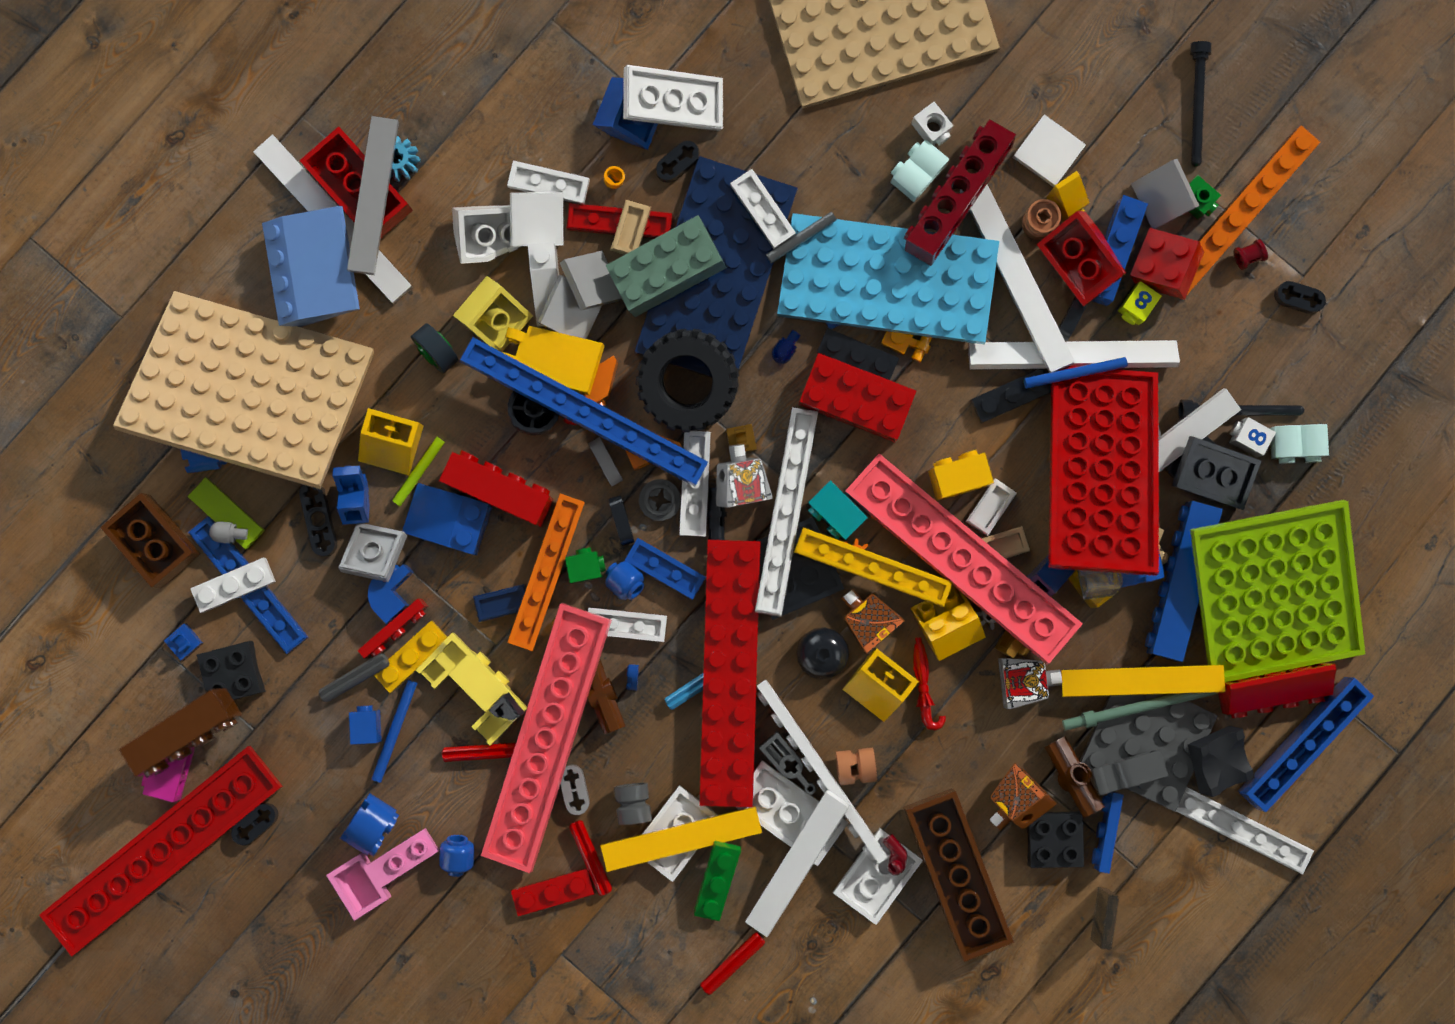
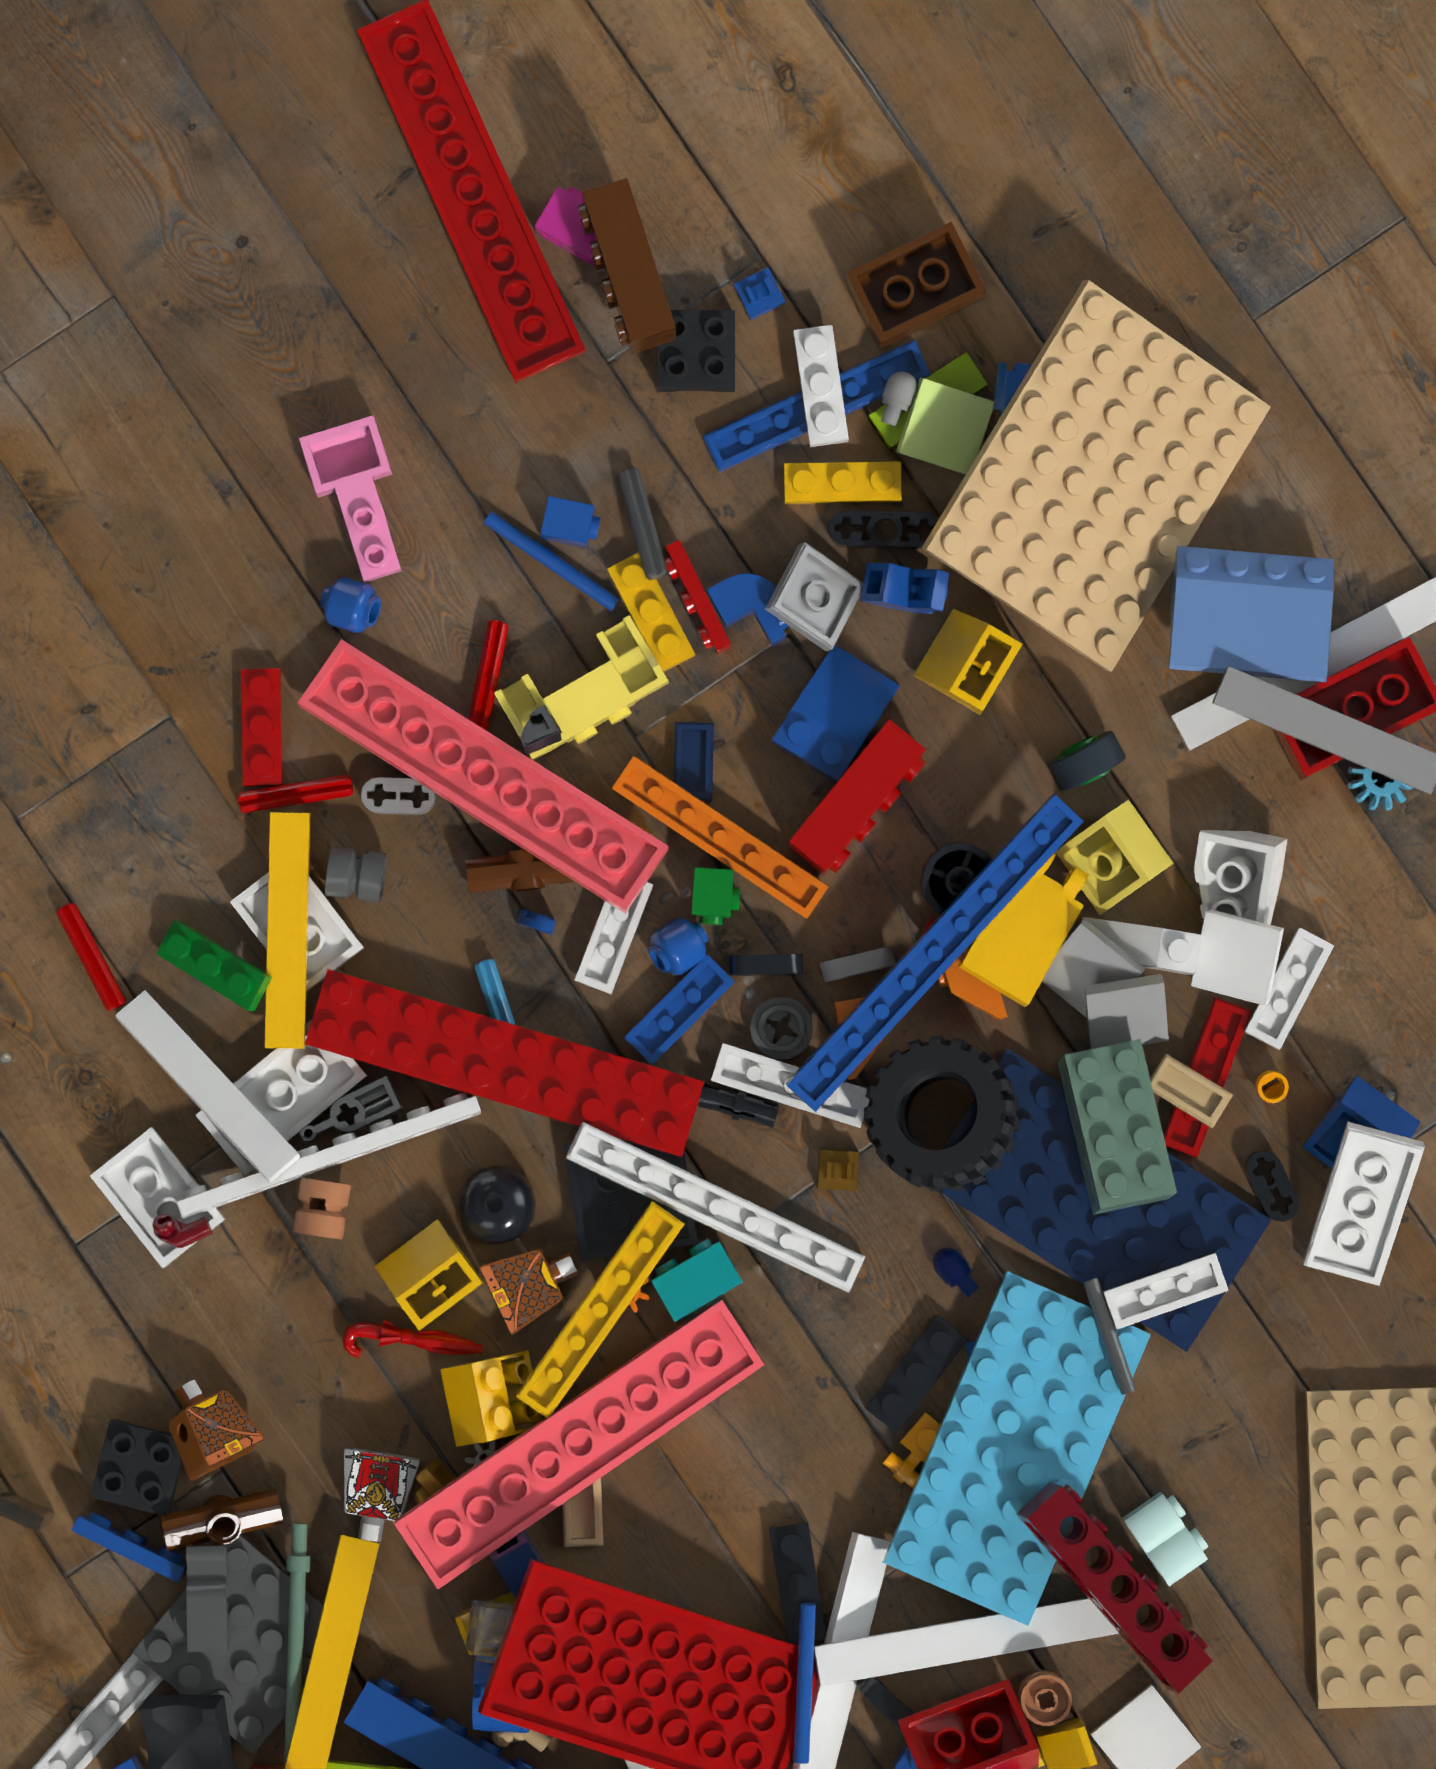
camera: 110 degrees right, 0 degrees up
(239, 497) = (945, 426): none -> yellowish green tile
(259, 828) = (464, 334): black beam -> none
(294, 554) = (842, 482): none -> yellow plate
(369, 824) = (427, 494): blue brick -> none
(418, 471) = (915, 691): lime bar -> none
(741, 480) = (777, 1153): torso -> none
(857, 397) = (853, 1354): red brick -> none
(932, 114) = (1244, 1576): white brick -> none
(958, 874) = (129, 1312): reddish brown brick -> none
(960, 476) = (698, 1473): yellow brick -> none
(990, 507) = (643, 1508): white tile -> none

